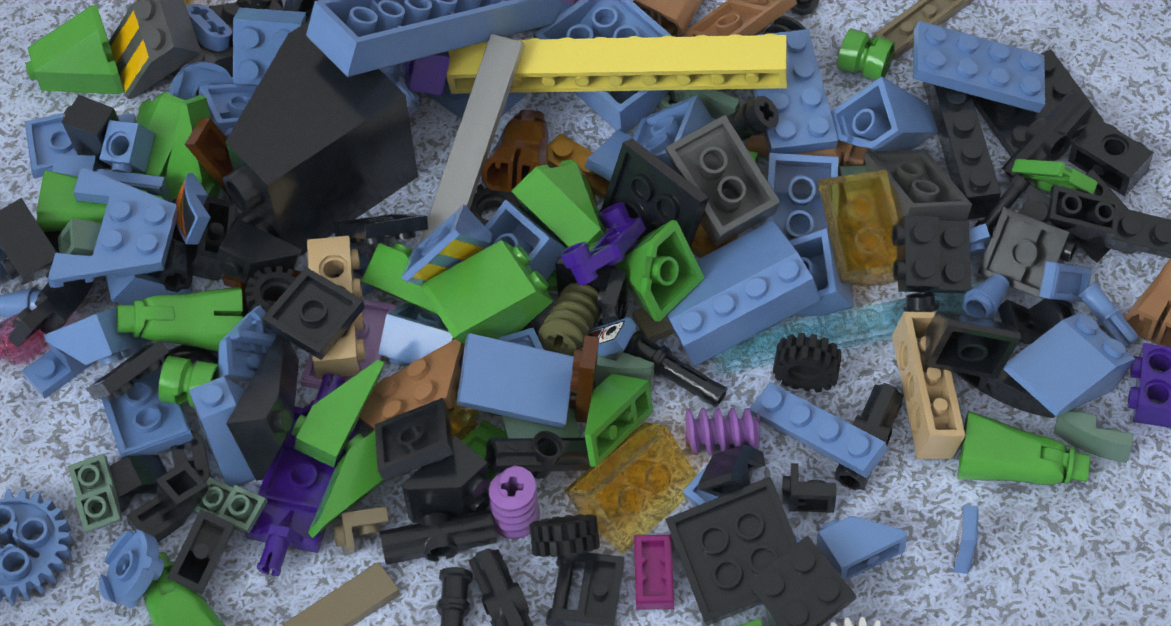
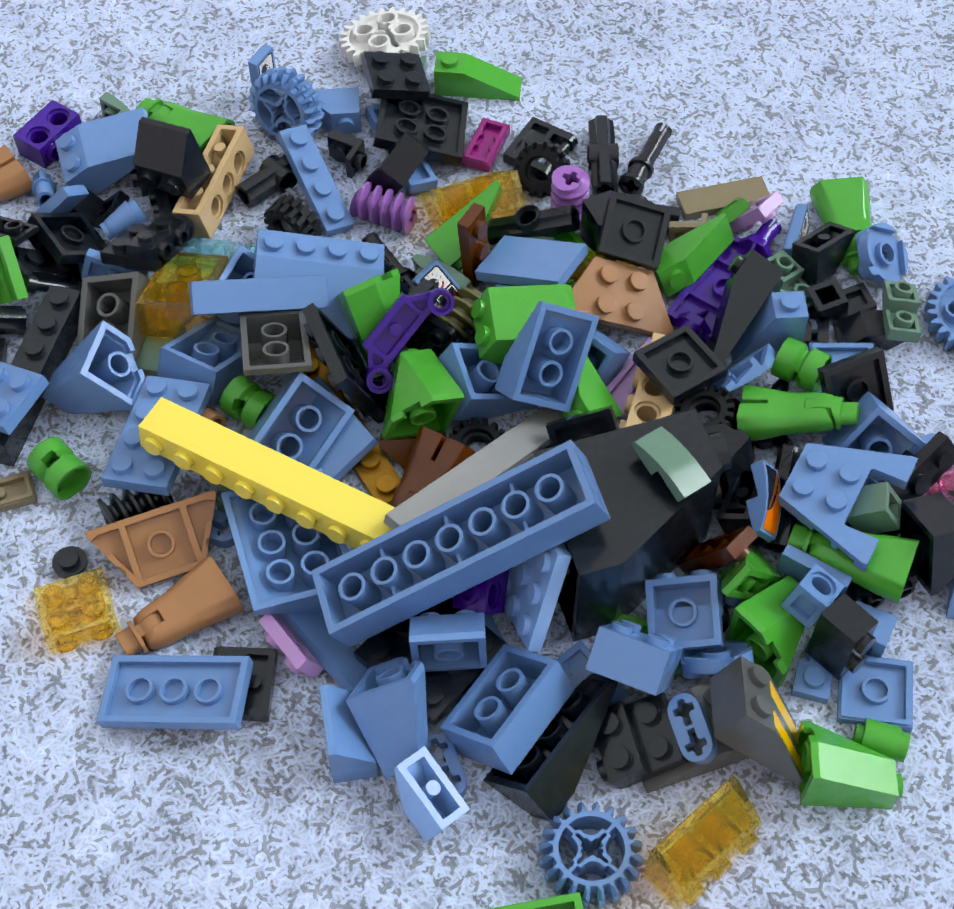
camera: 160 degrees left, 0 degrees up
(49, 97) = (882, 738): none -> bright green brick
(238, 573) = (798, 227): none -> medium blue tile
(271, 108) = (675, 464): none -> sand green slope
(293, 569) = (760, 211): none -> lavender plate
(321, 574) = (735, 209): none -> bright green tile
(335, 417) = (681, 294): bright green slope -> none
(754, 117) = (212, 402): black axle -> none
(783, 209) = (257, 294): none -> medium blue slope
(906, 497) = (285, 101): none -> medium blue gear

